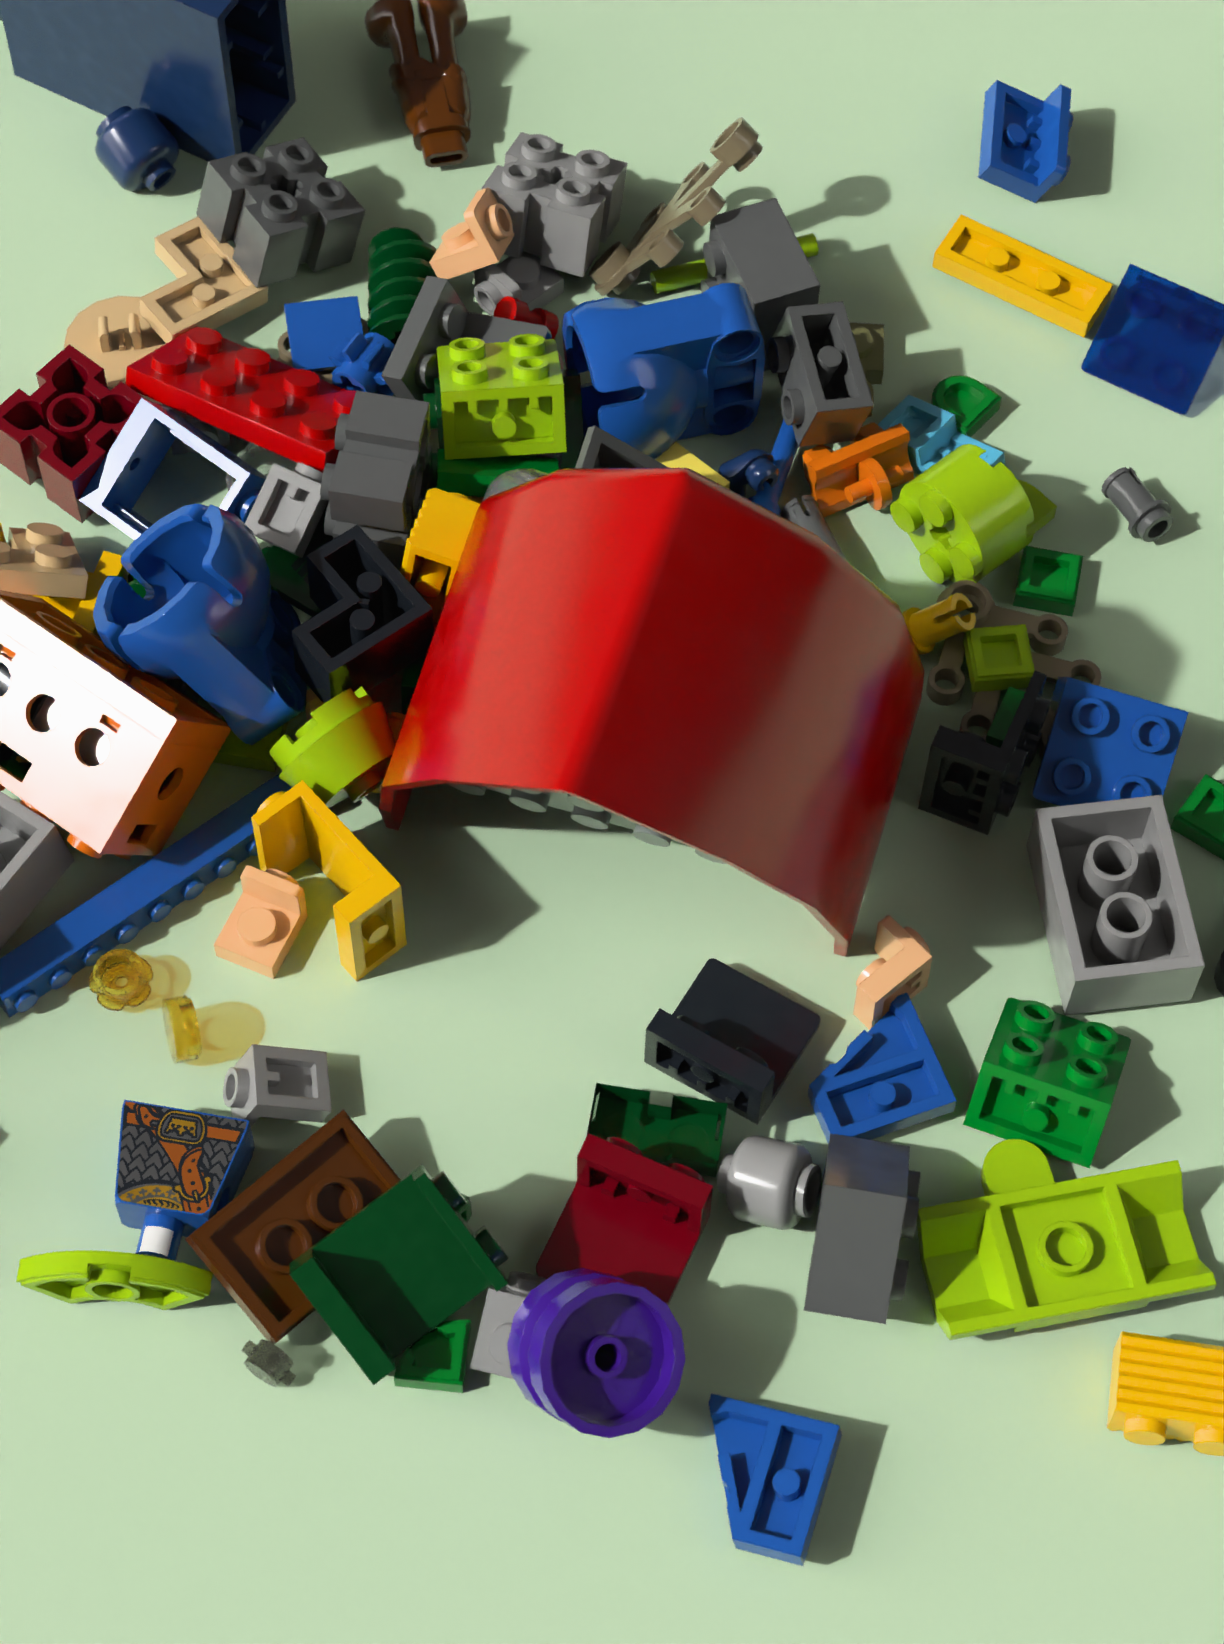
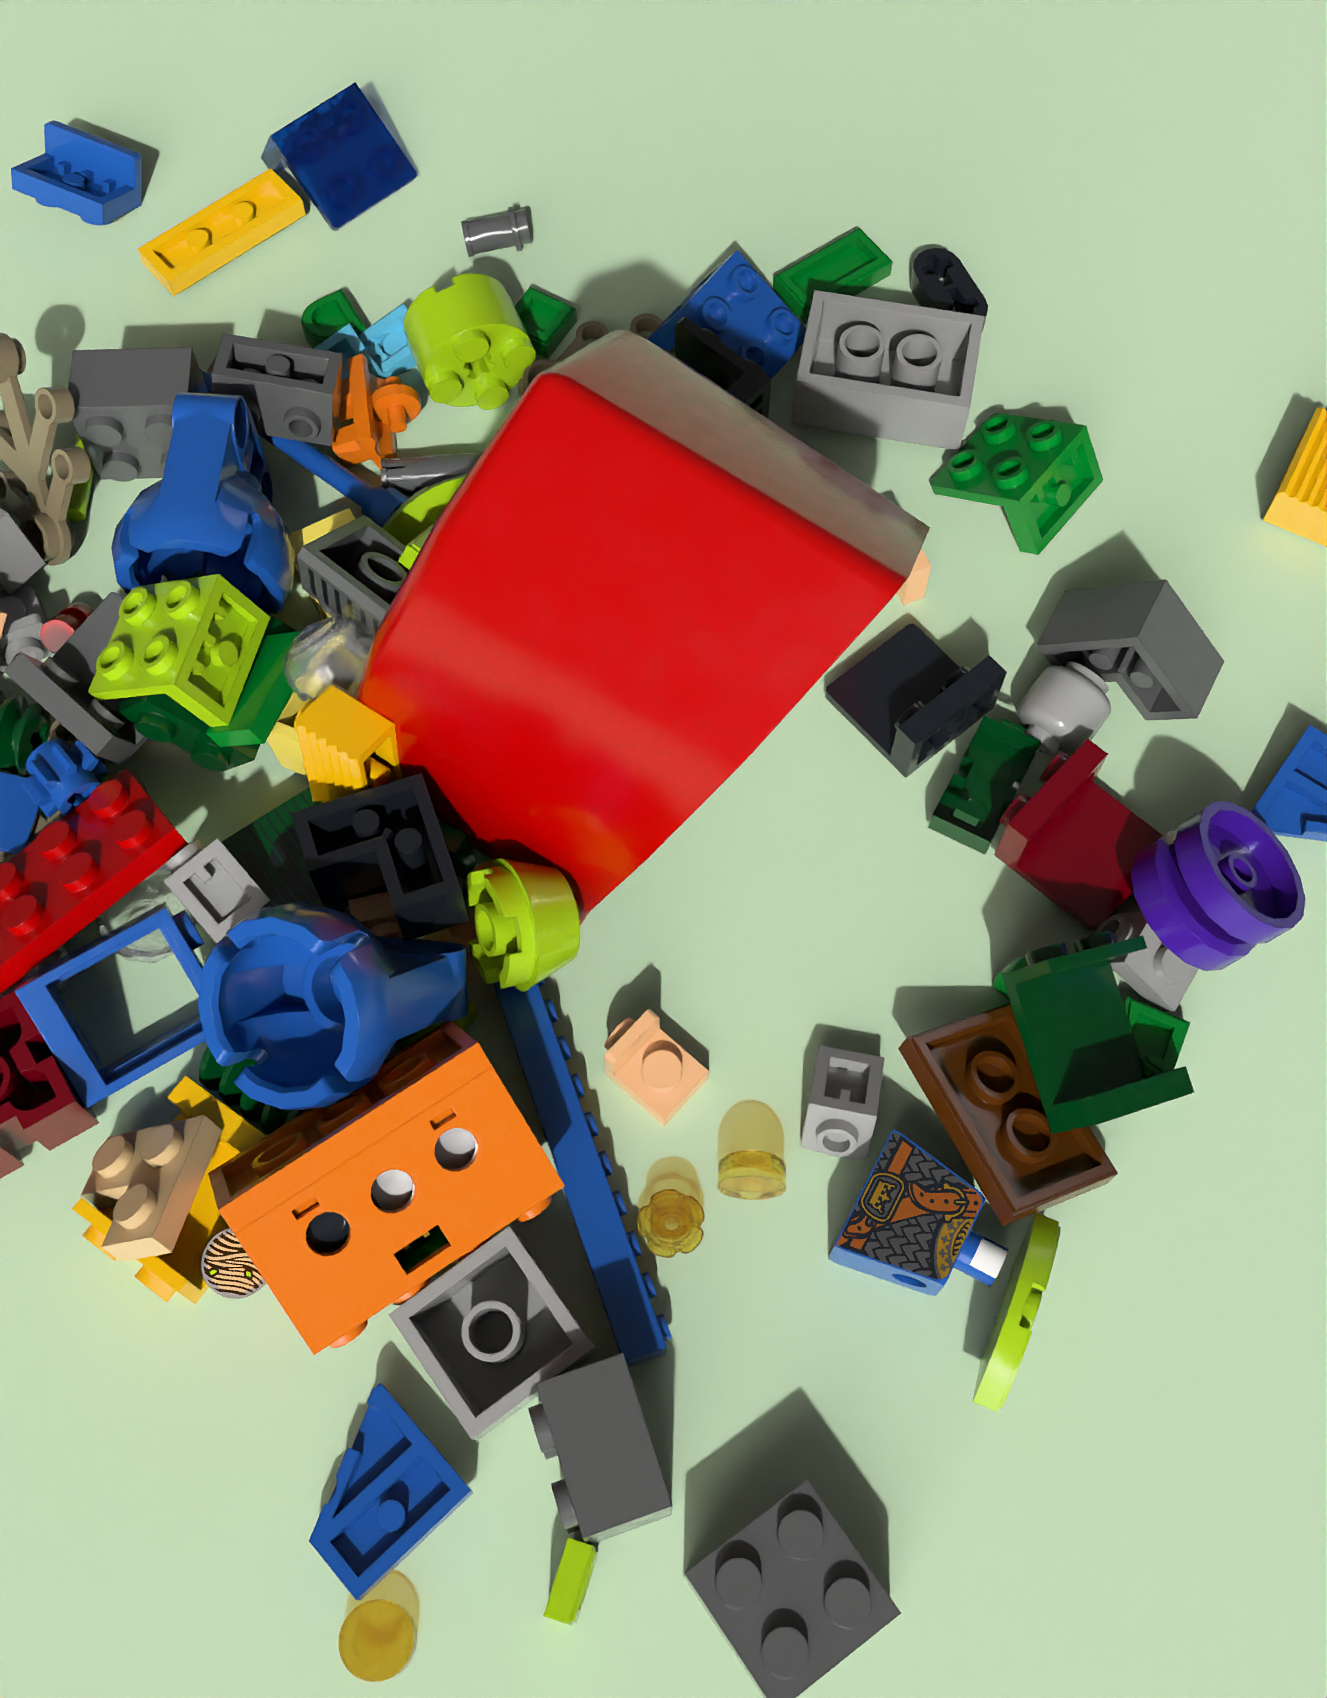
camera: 70 degrees left, 5 degrees up
(268, 1363) = (1126, 1190): clear smoke piece -> none
(371, 915) = (645, 955): yellow panel -> none
(379, 470) = (232, 782): dark grey brick -> none
(750, 468) = (341, 483): dark blue arm -> none
(883, 1080) = (987, 598): blue wing -> none
(1014, 1166) = (1097, 533): lime tile -> none
(1059, 1251) = (1190, 516): lime piece -> none

